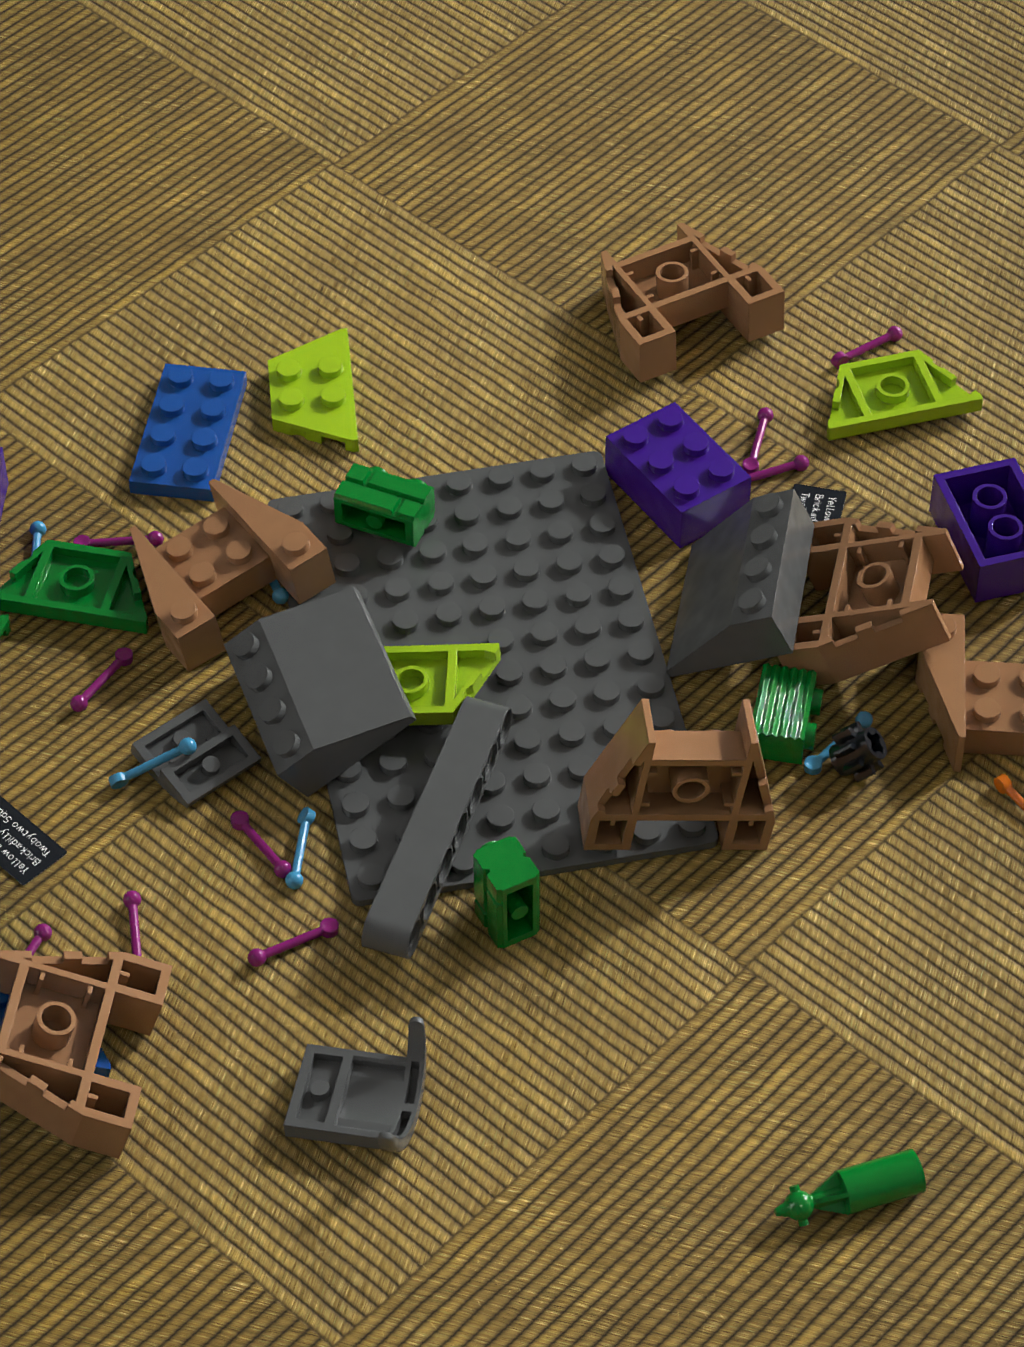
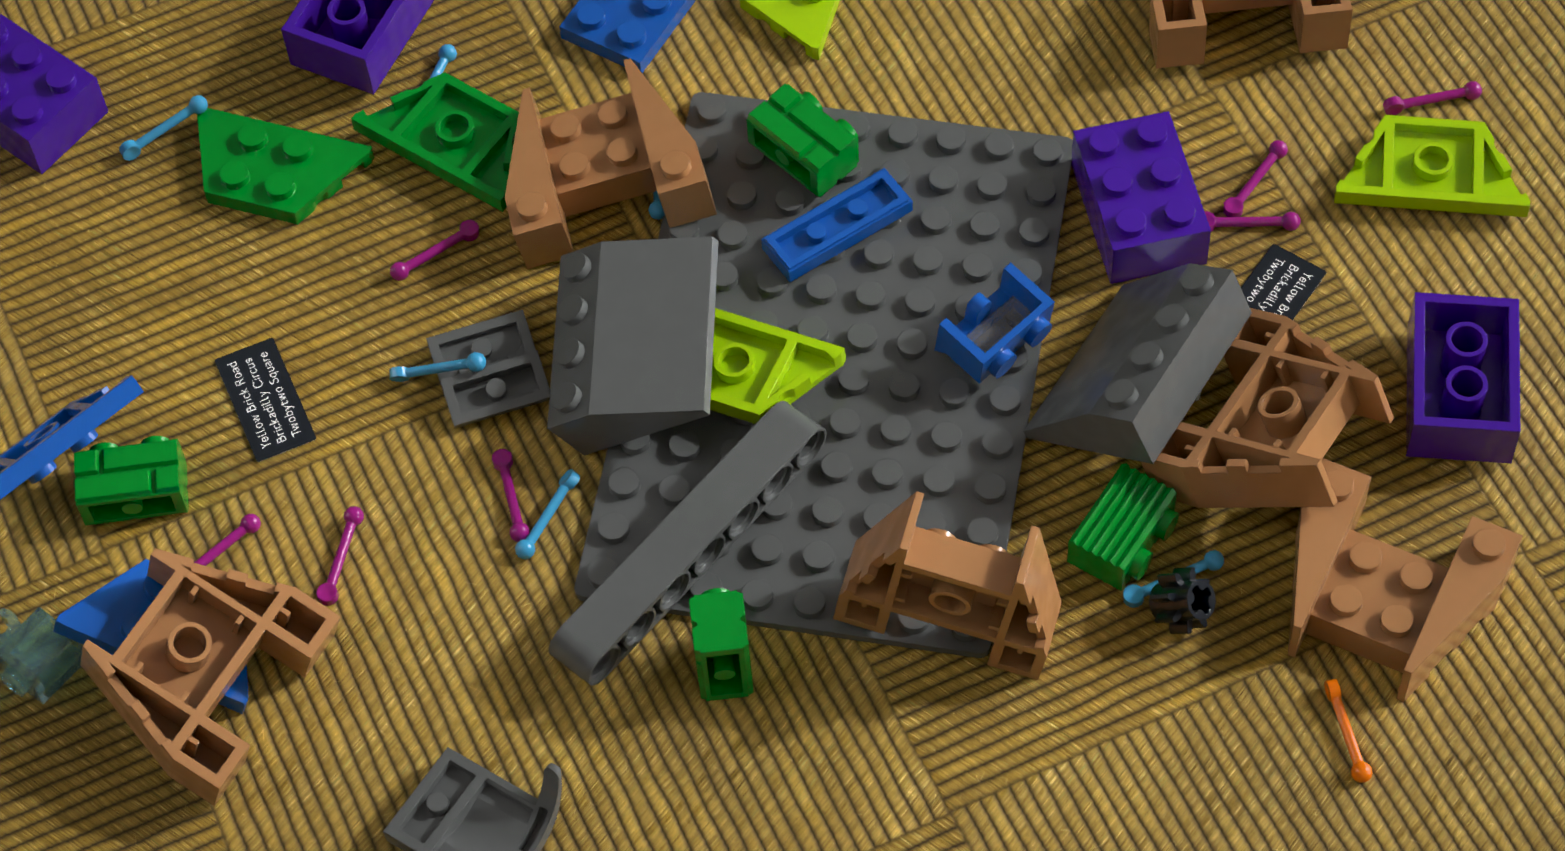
camera: 25 degrees right, 10 degrees up
(154, 537) = (486, 84): magenta hinge -> none
(328, 928) = (536, 616): magenta hinge -> none
(440, 562) = (837, 224): none -> blue tile
(613, 594) = (997, 326): none -> blue window

